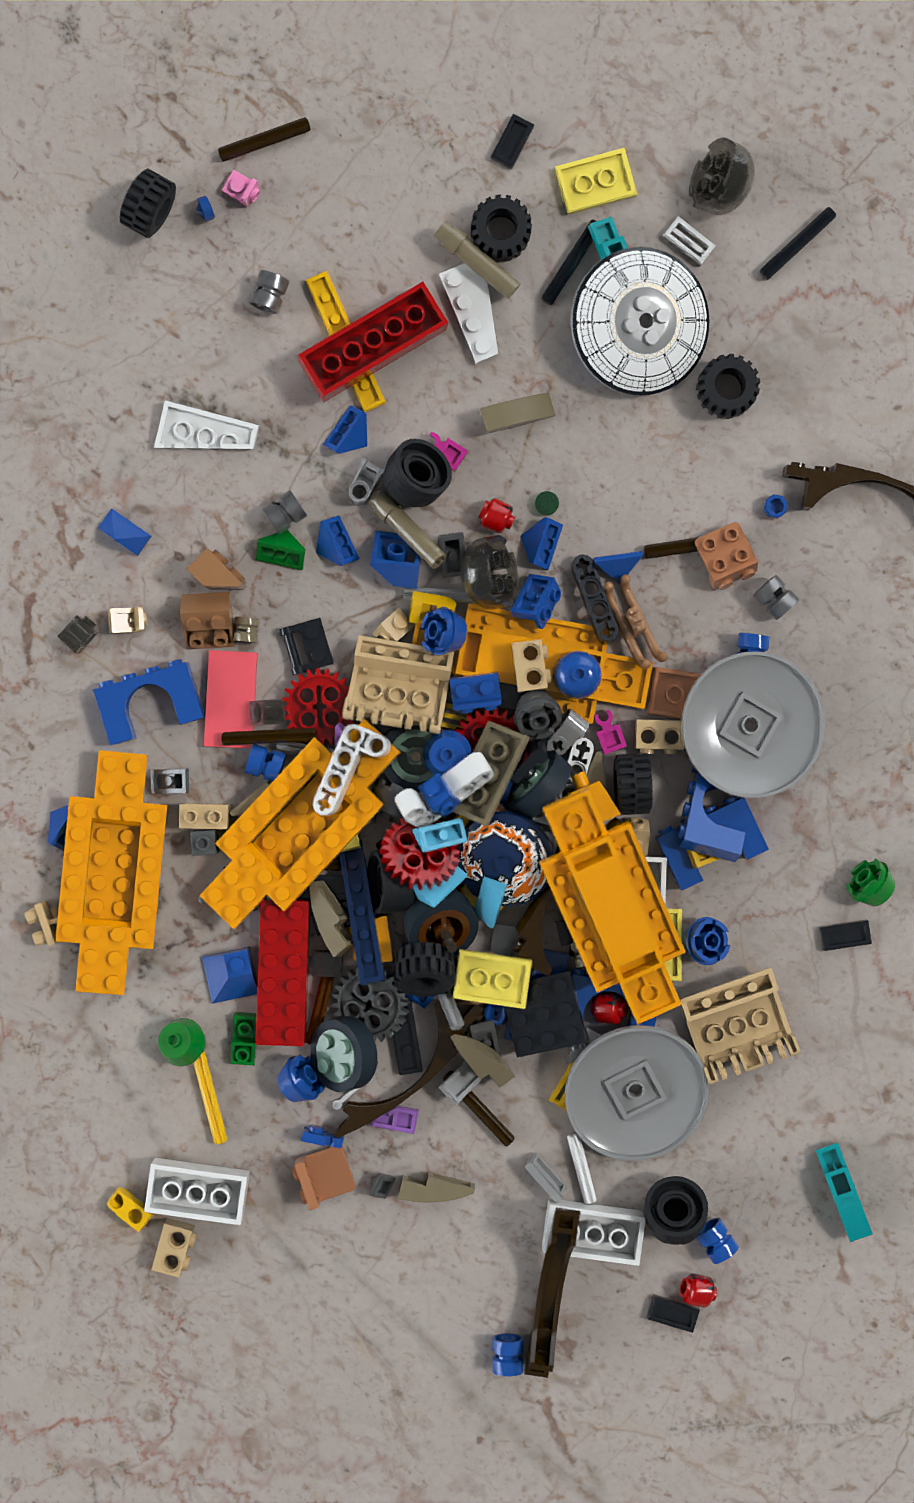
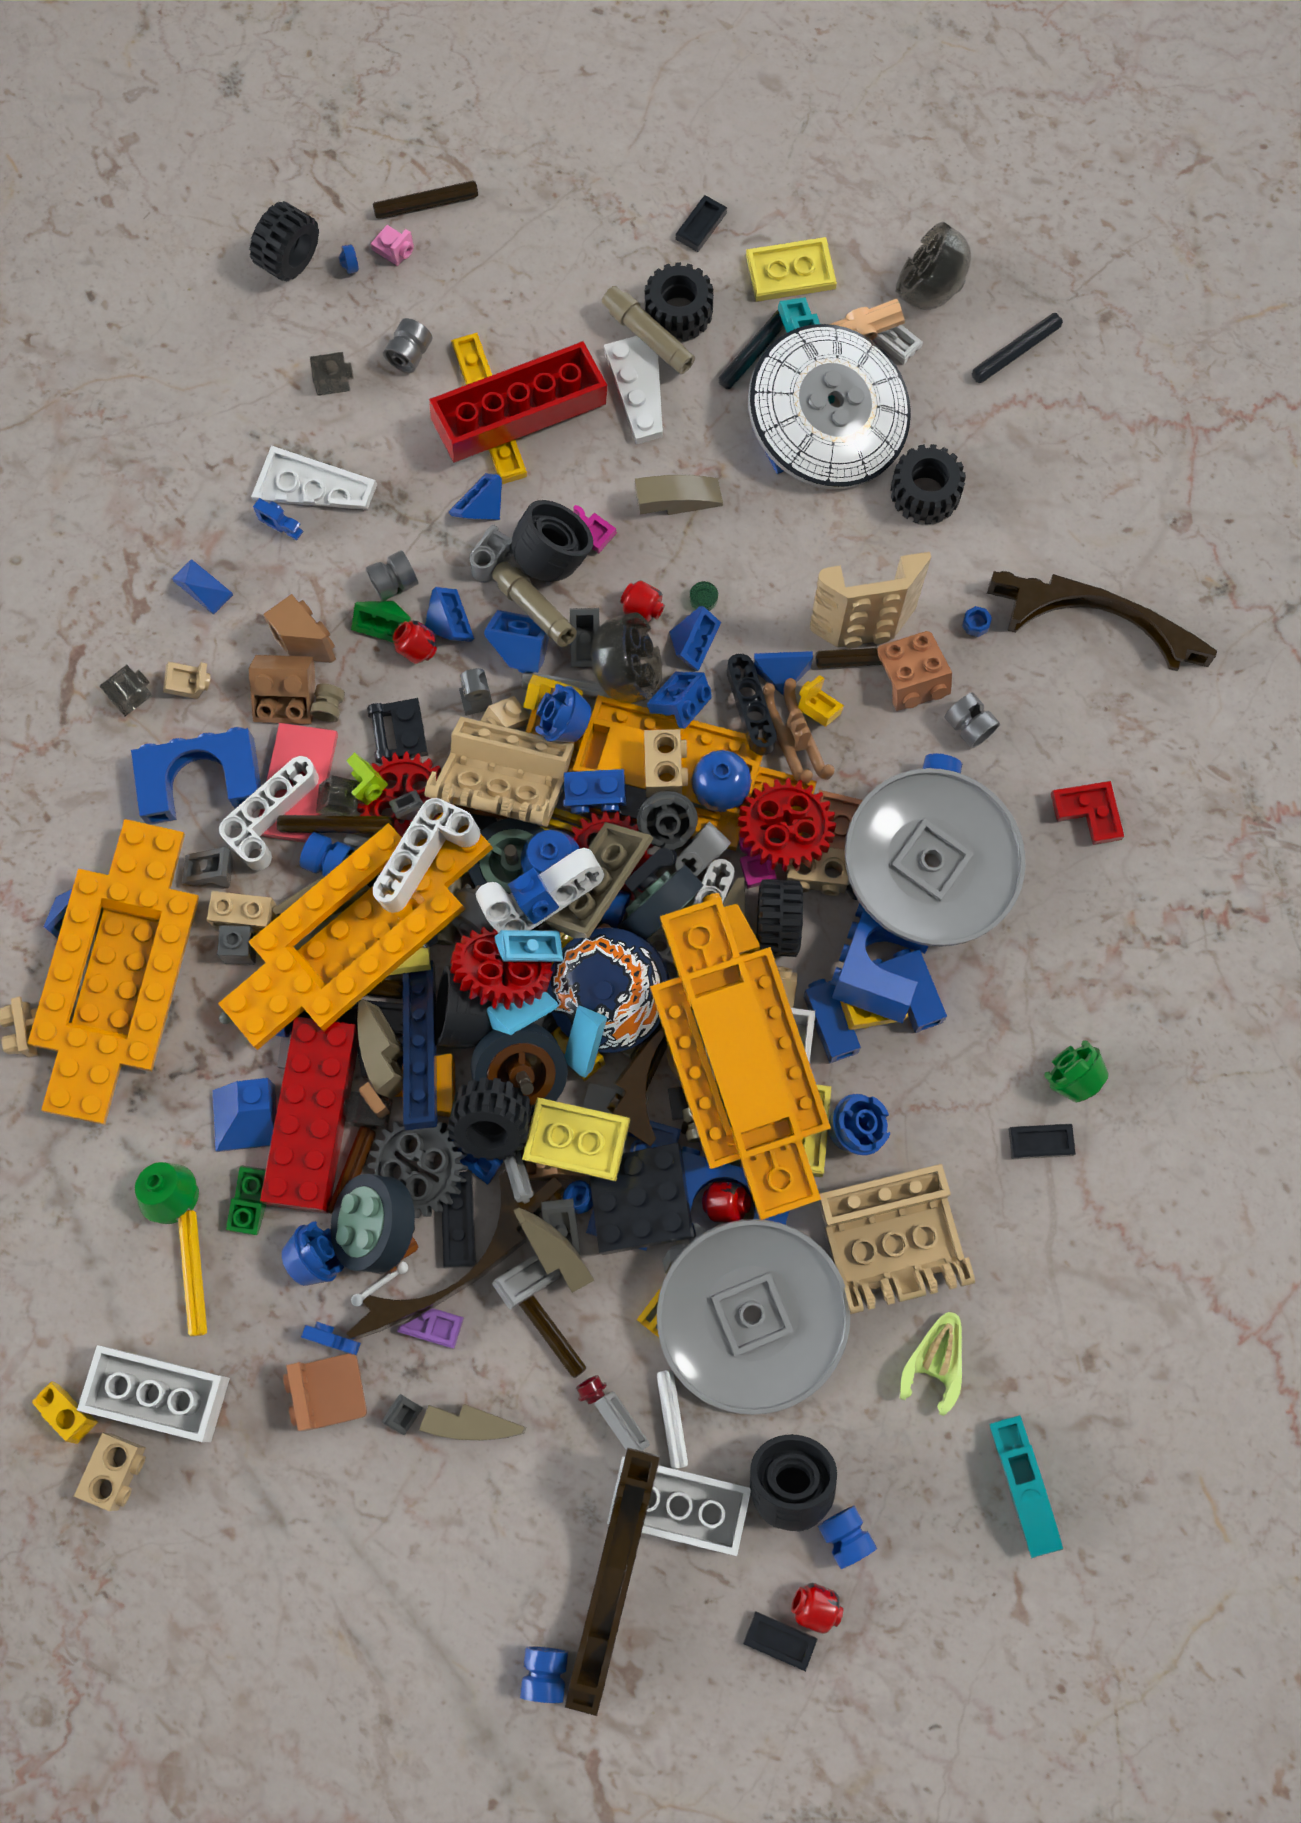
camera: 10 degrees right, 15 degrees down
(176, 464) = (274, 516): none -> blue plate
(195, 320) = (324, 365): none -> clear smoke brick
(216, 729) = (264, 799): none -> white beam
(290, 695) = (370, 781): none -> lime bracket
(311, 570) = (414, 641): none -> red head
(325, 718) = (406, 806): none -> dark grey slope
(332, 962) = (373, 1100): none -> medium nougat tile
(367, 611) = (474, 691): none -> dark grey leg
(520, 1154) = (591, 1389): none -> dark red plate
(625, 686) = (786, 824): none -> red gear
(650, 593) = (817, 703): none -> yellow bracket
(657, 520) = (867, 611): none -> tan slope
(667, 235) = (873, 320): none -> light nougat piece
(777, 1105) = (939, 1357): none -> yellowish green animal
(878, 658) = (1096, 804): none -> red plate

